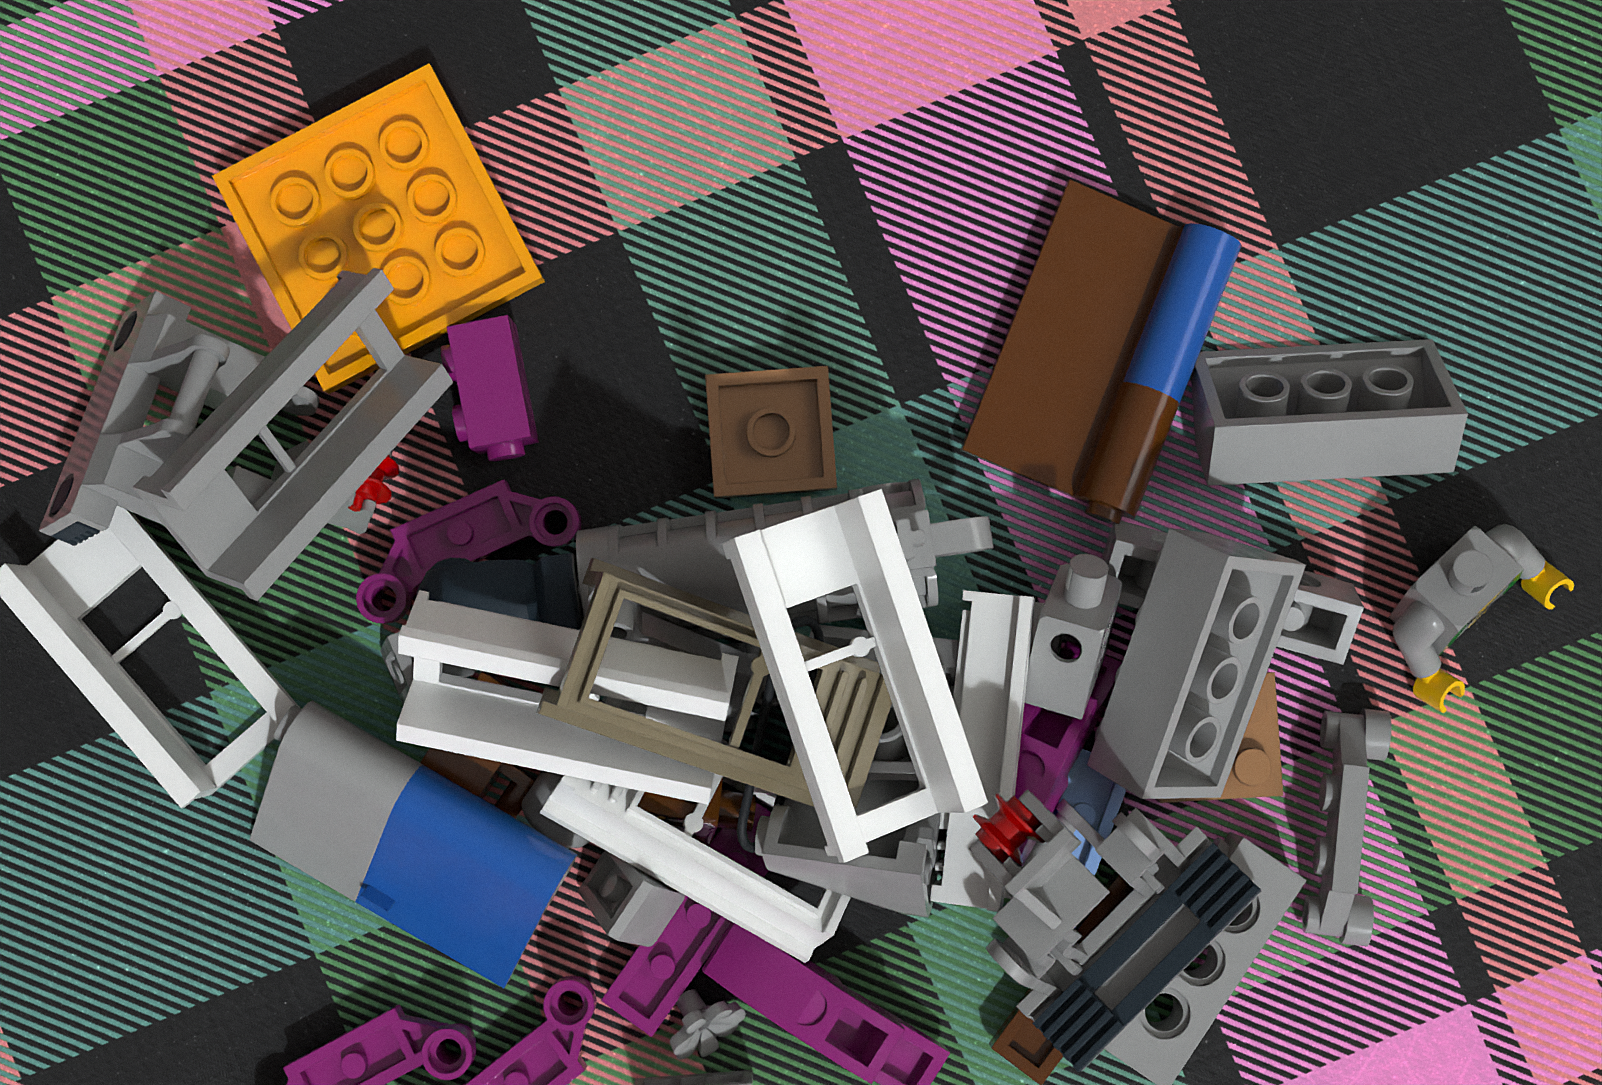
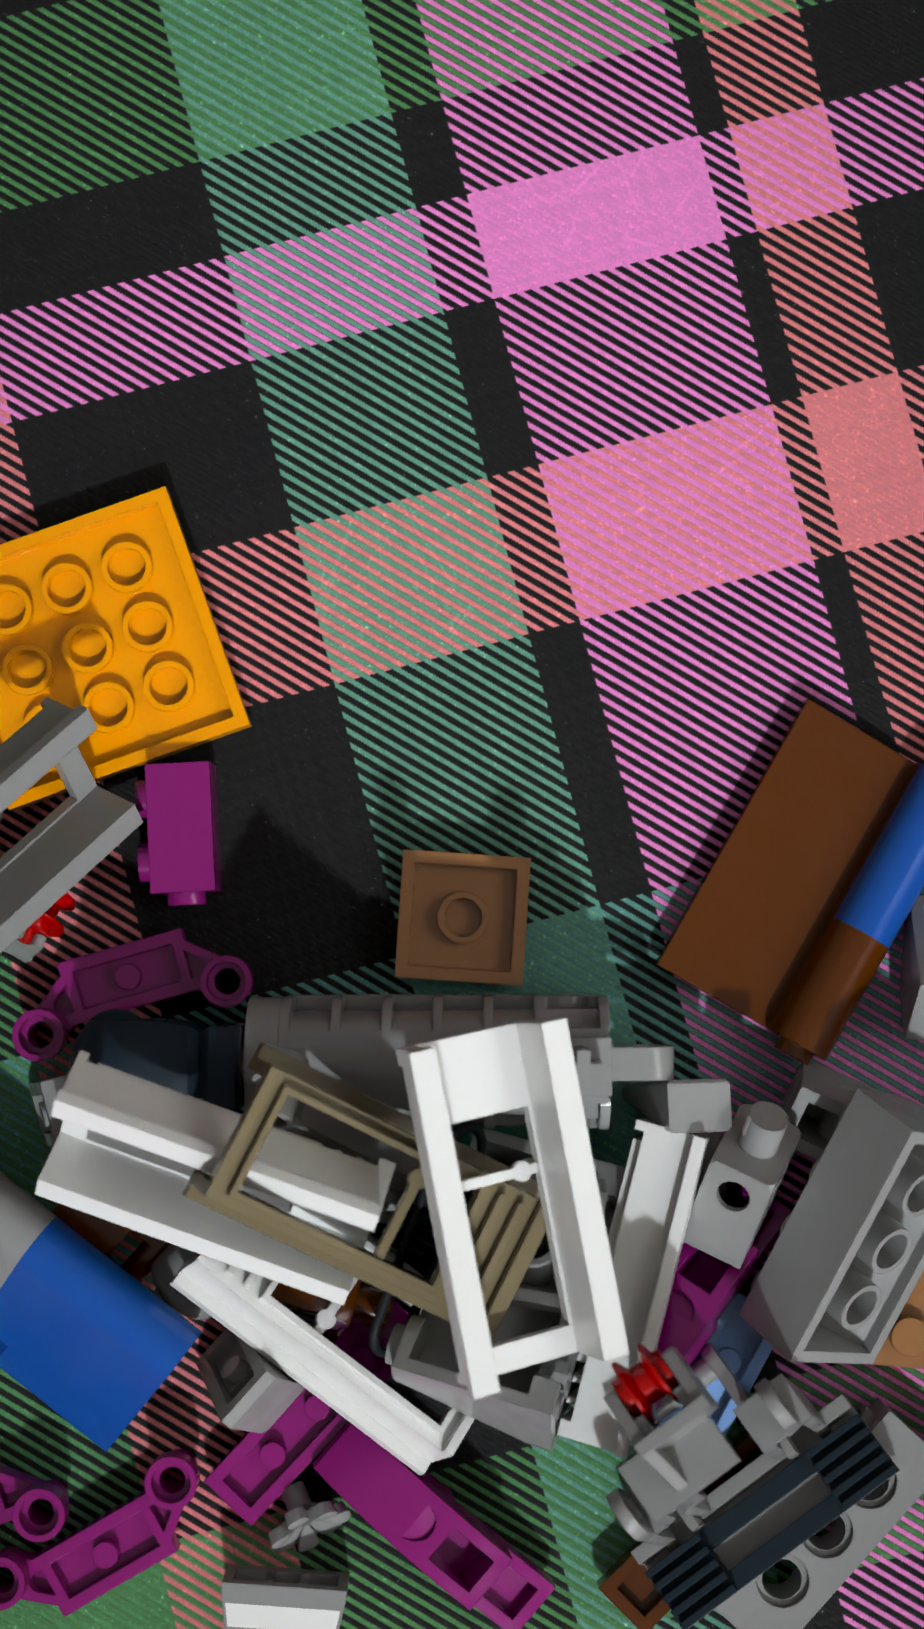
camera: 10 degrees right, 0 degrees up
(1006, 570) = (684, 1104): none -> light grey slope

